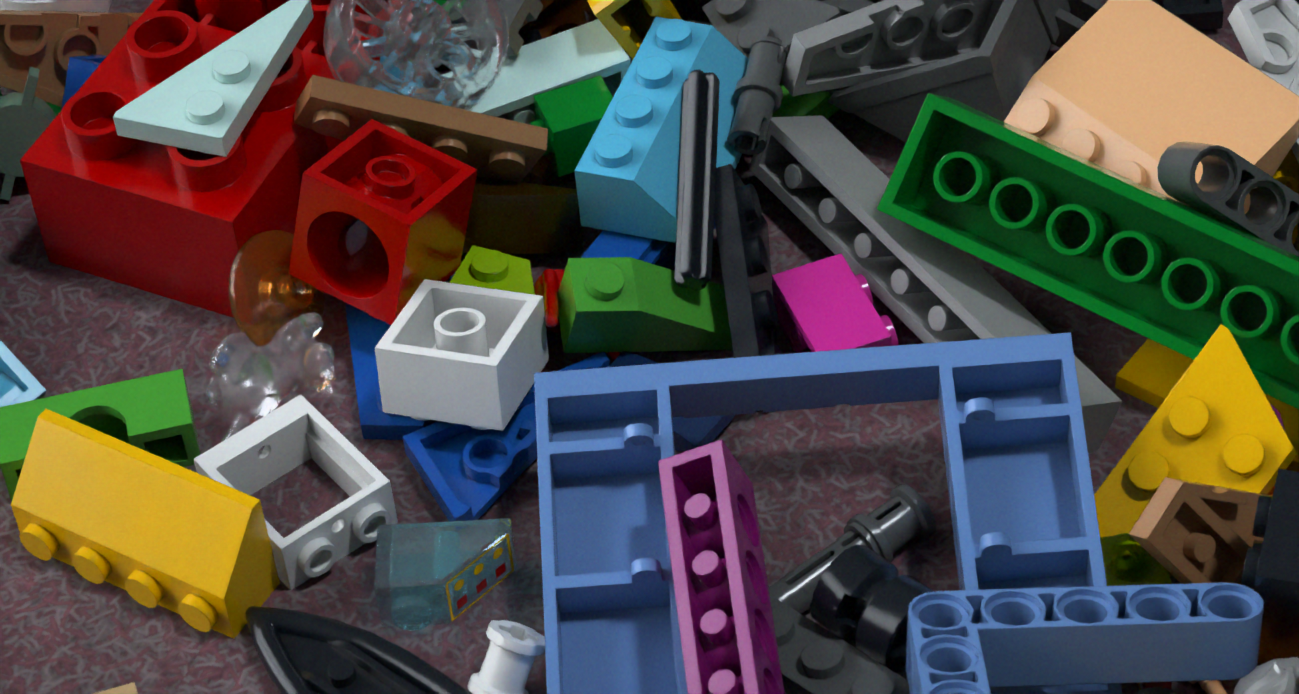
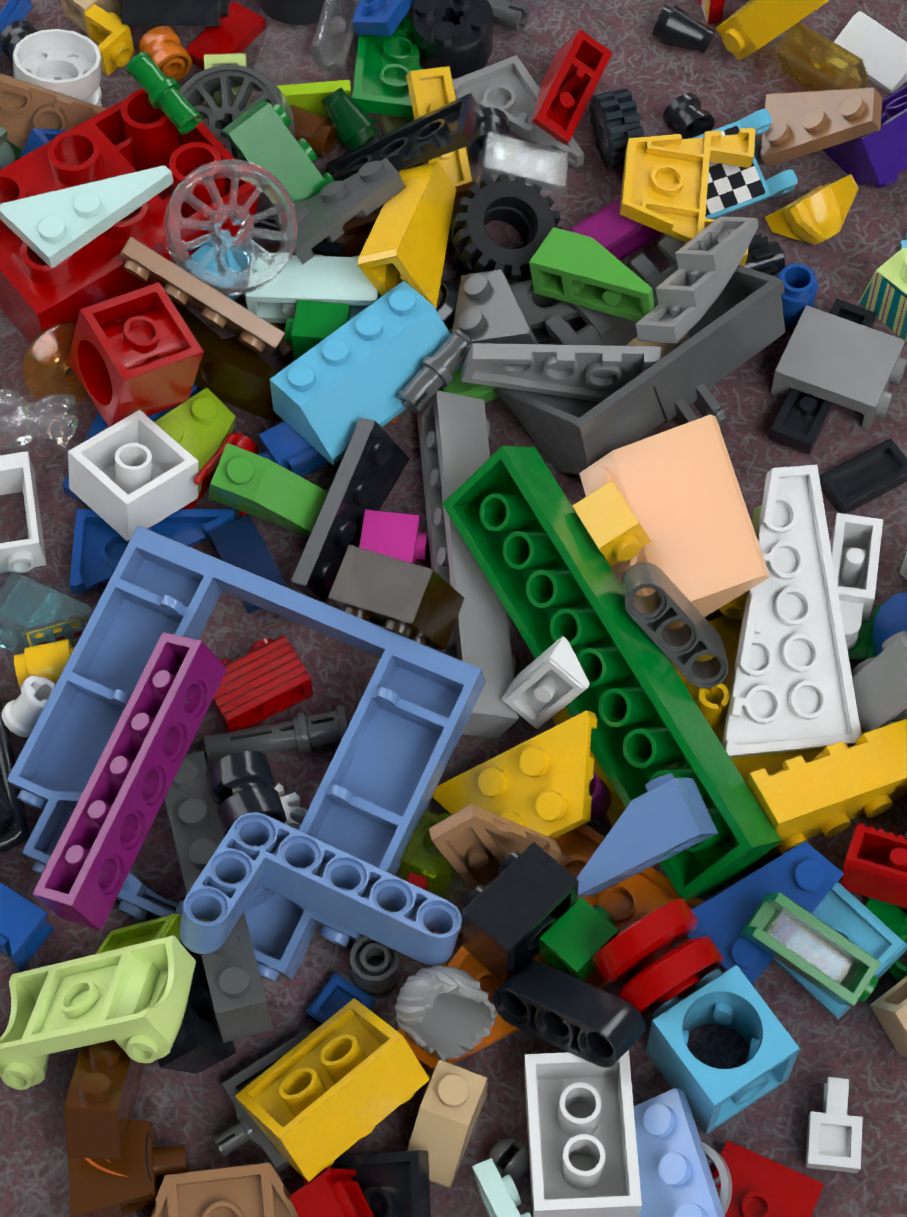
camera: 25 degrees right, 15 degrees up
(498, 598) = (43, 661): none -> yellow brick
(697, 180) = (349, 420): black axle -> none
(793, 504) = (261, 684): none -> red brick
(900, 299) = (397, 596): none -> brick
(1101, 129) = (611, 524): none -> yellow brick
(1142, 333) = (547, 684): none -> white slope

